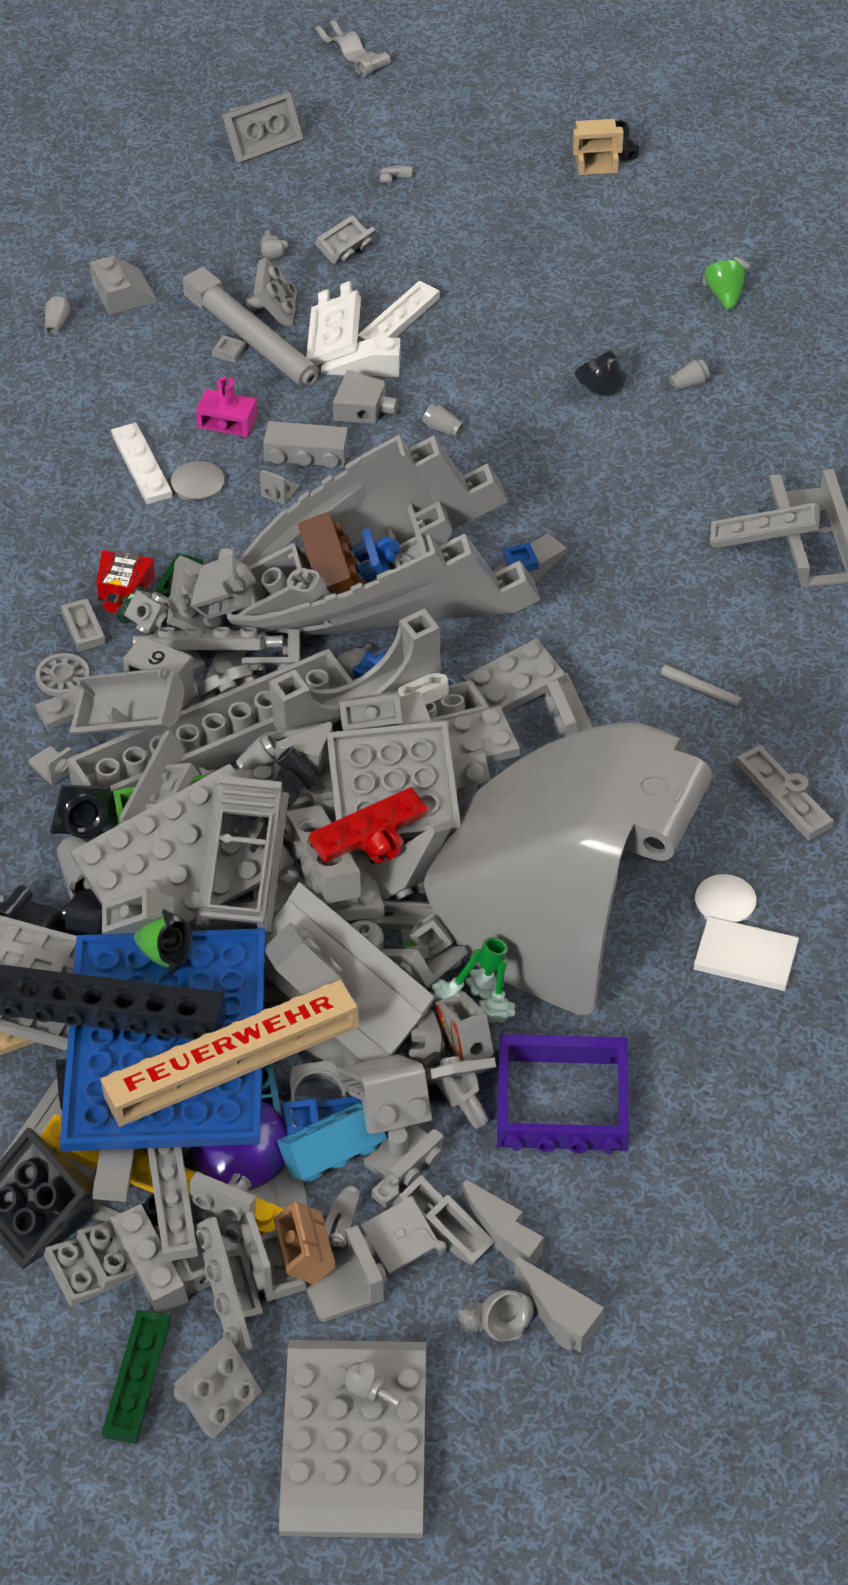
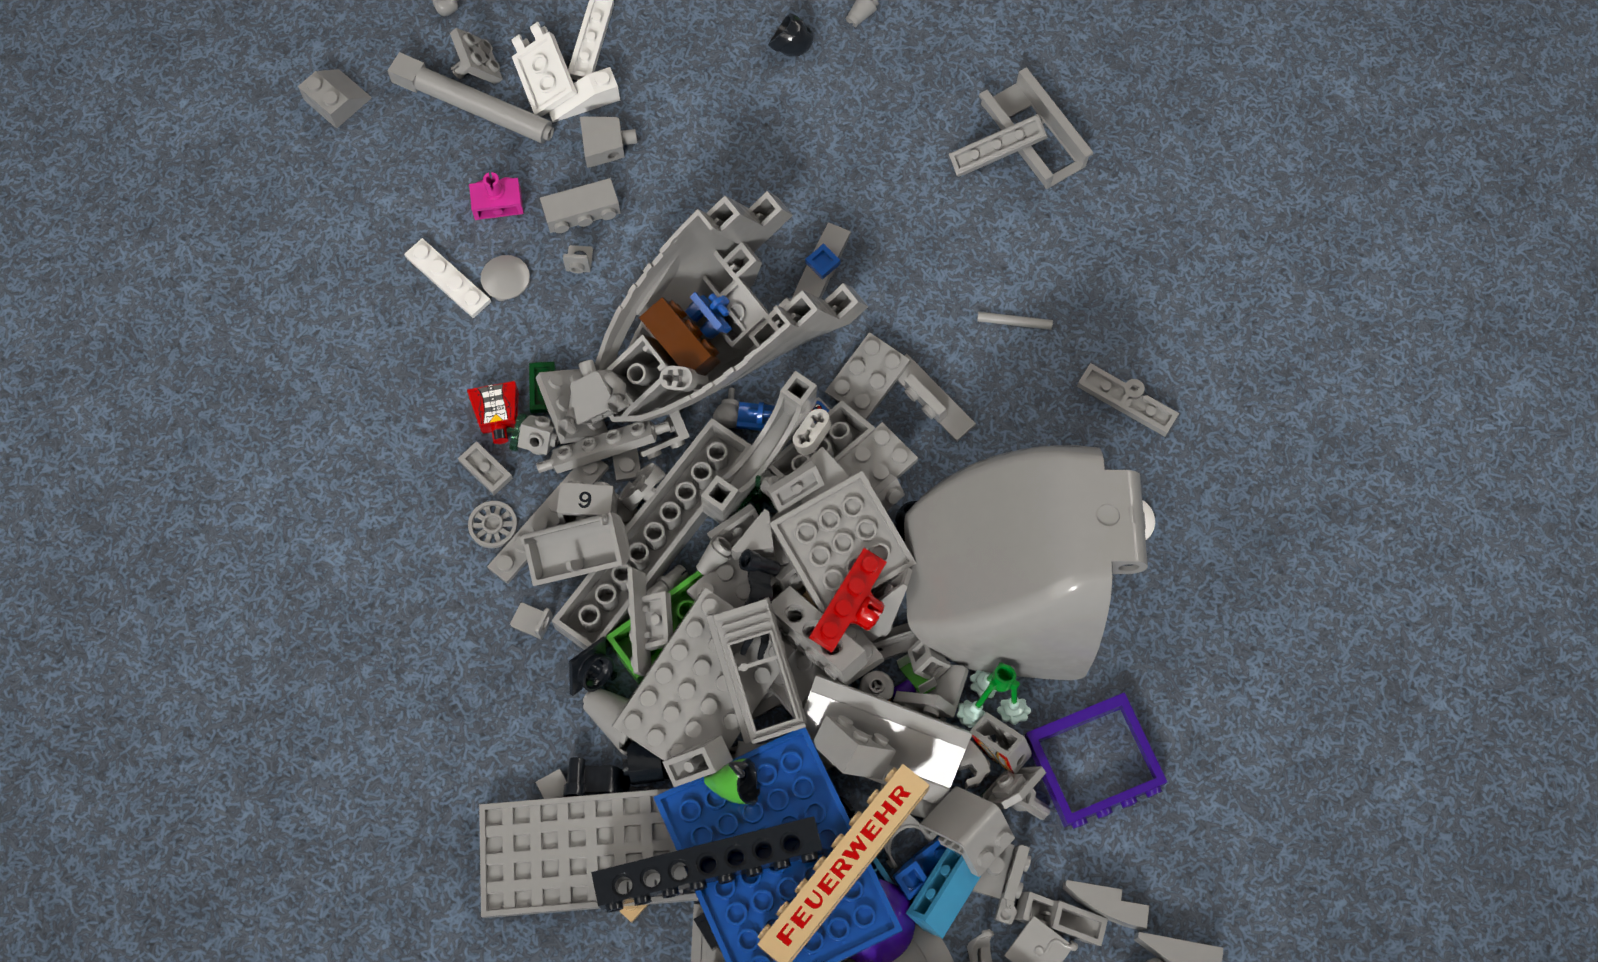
camera: 25 degrees left, 20 degrees up
(56, 313) = (292, 149): light grey cone -> none
(229, 348) = (461, 127): light grey tile -> none
(442, 420) = (681, 135): light grey cone -> none
(746, 953) = (1173, 566): white tile -> none

